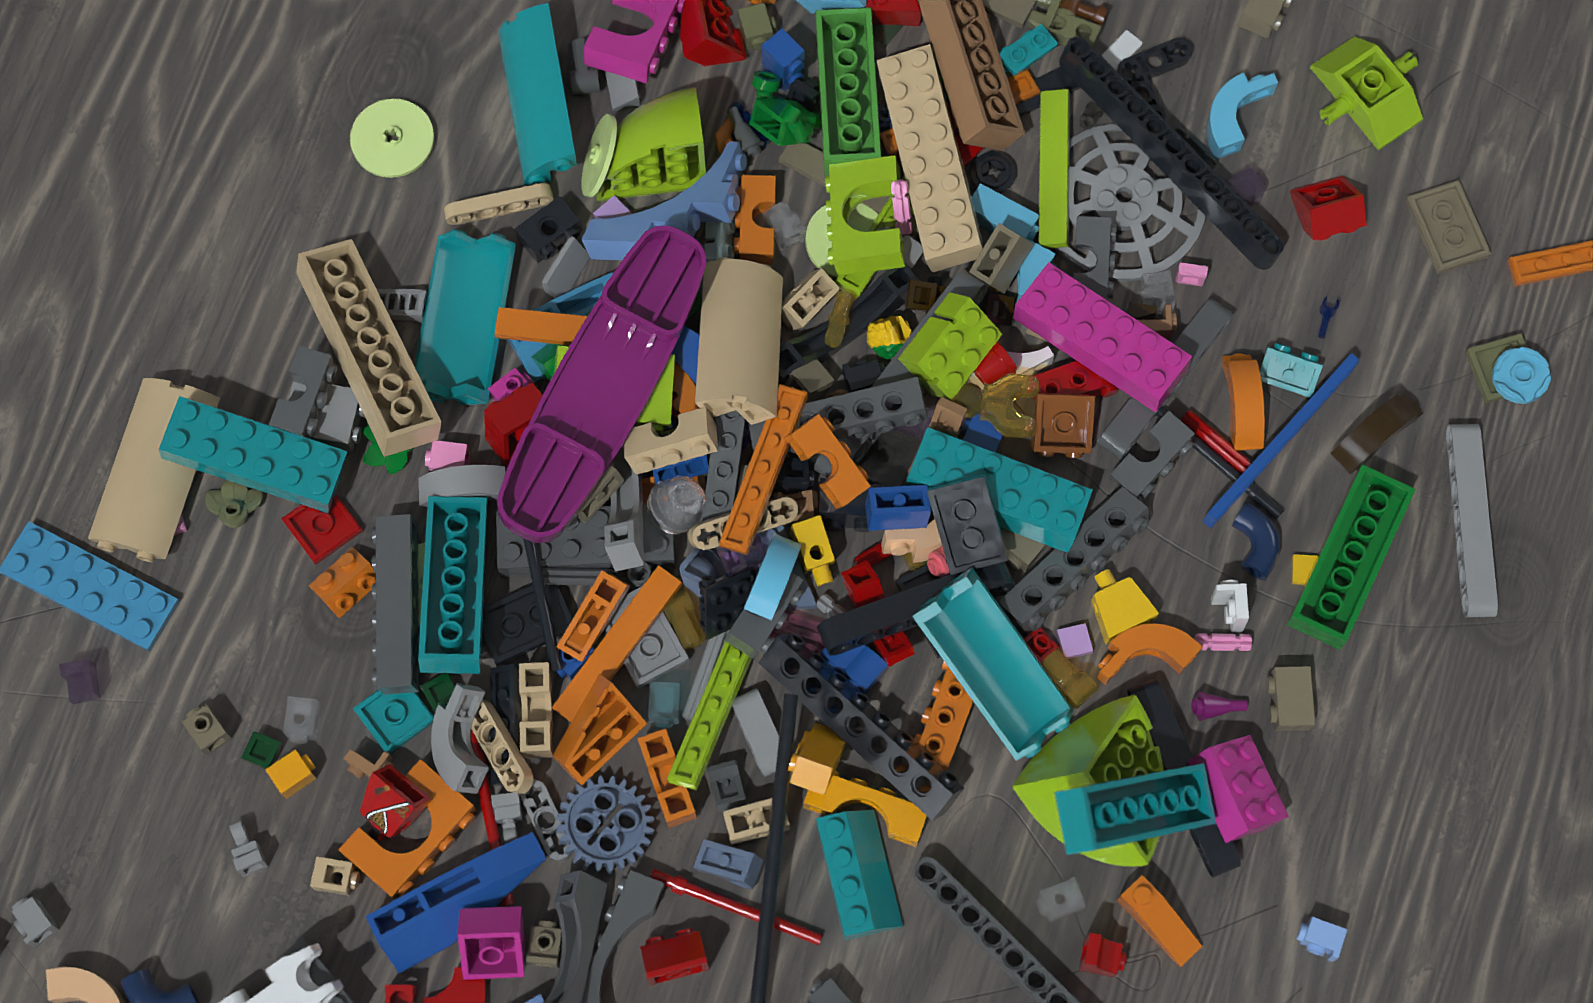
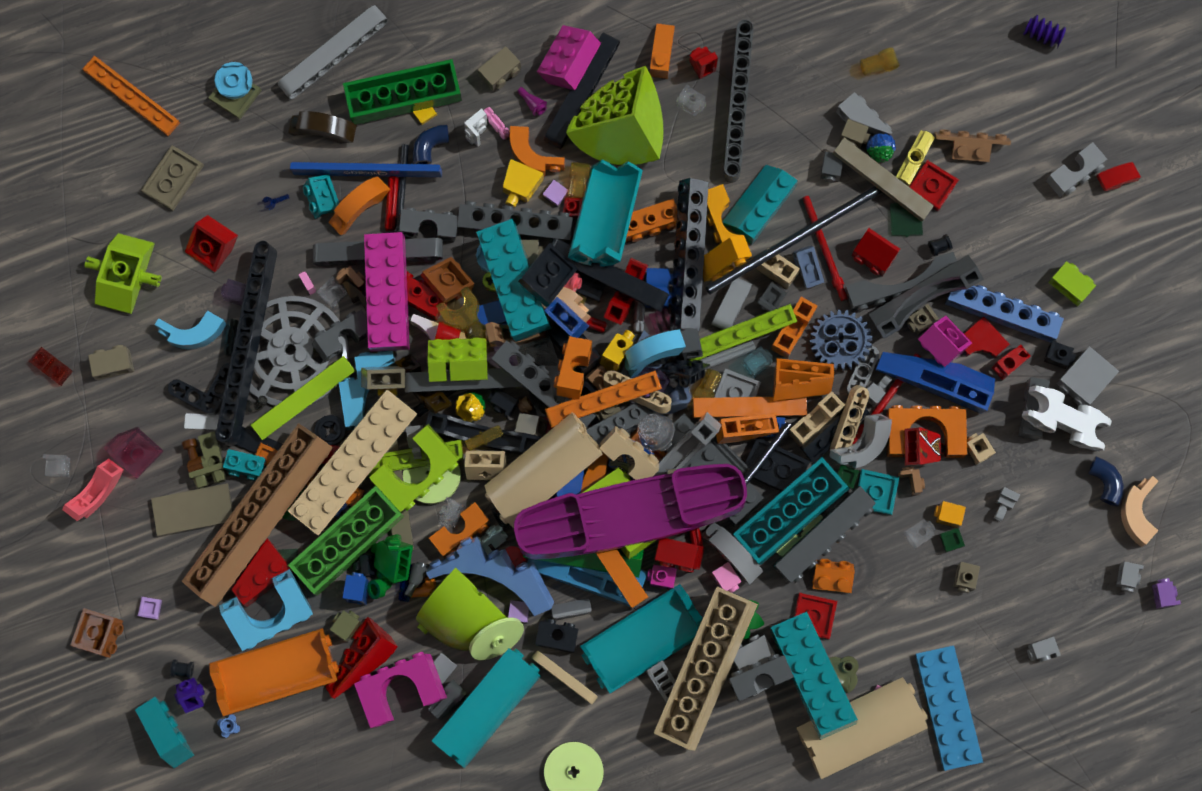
camera: 130 degrees left, 5 degrees up
(48, 745) = (1043, 649): none -> light grey brick
(81, 680) = (998, 664): clear purple panel -> none
(901, 206) = (394, 453): bright pink axle -> none
(1134, 808) = (629, 81): teal brick -> none

